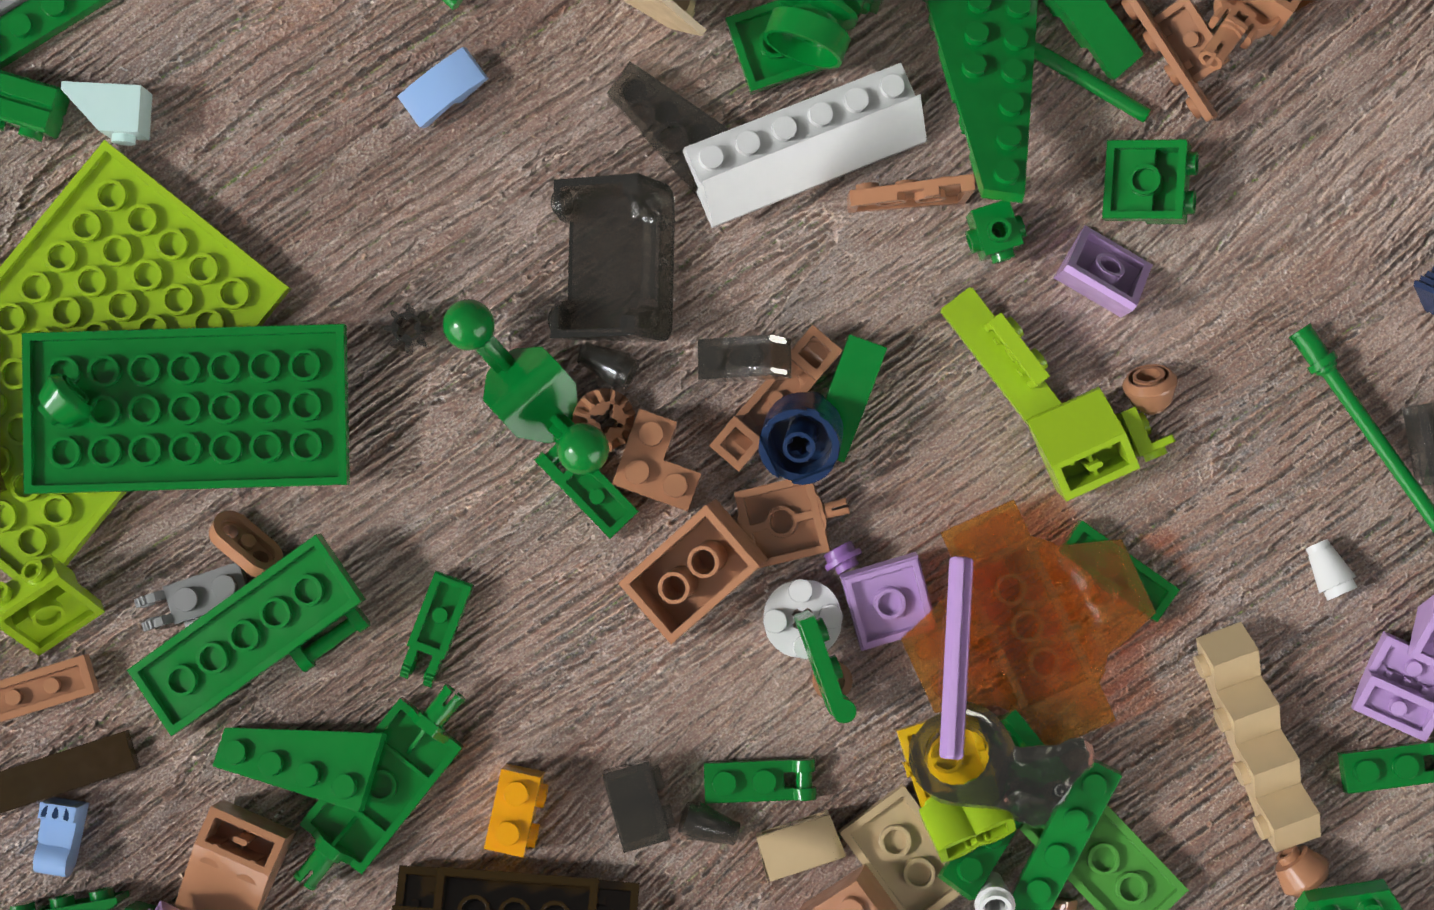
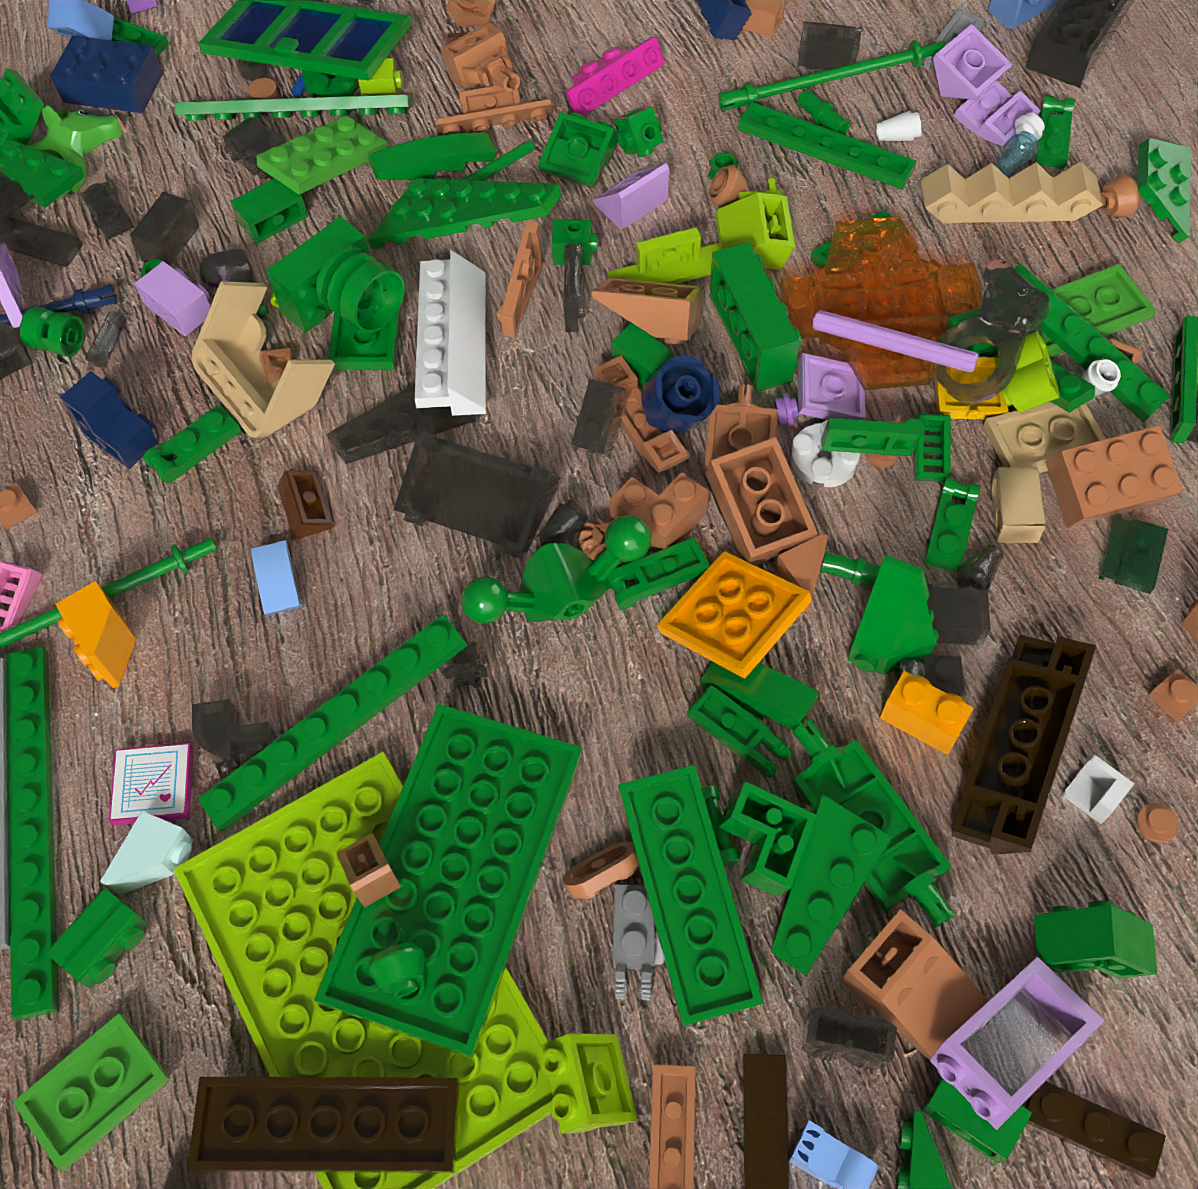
camera: 65 degrees left, 25 degrees down
(146, 330) = (367, 870): none -> nougat slope
(163, 830) = (861, 1041): none -> clear smoke brick
(184, 73) = (151, 781): none -> white tile
(246, 118) = (223, 738): none -> clear smoke brick
(301, 226) = (331, 723): none -> green plate
(328, 701) = (777, 835): none -> green brick
(484, 635) = (765, 693): none -> green slope
(545, 75) = (304, 503): none -> reddish brown slope
(557, 584) = (734, 613): none -> light orange plate
(569, 810) = (940, 671): none -> clear smoke plate
(580, 750) = (895, 620): none -> green wedge
(639, 640) = (803, 564): none -> nougat slope
(662, 695) = (853, 569): none -> green pin
(854, 747) = (942, 425): none -> green slope
(920, 360) = (655, 307): none -> nougat slope
(935, 254) = (573, 287): none -> clear smoke plate
(948, 483) = (754, 317): none -> green brick
(1194, 360) = (720, 161): none -> green plate
(1200, 246) = (639, 131): none -> green brick
(1269, 486) = (827, 145): none -> green plate
(1298, 172) = (612, 74): none -> dark pink bracket
(1323, 467) = (822, 112): none -> green pin
(1337, 728) = (1018, 151): none -> clear light blue cone
(1378, 734) = (1031, 123): none -> white plate

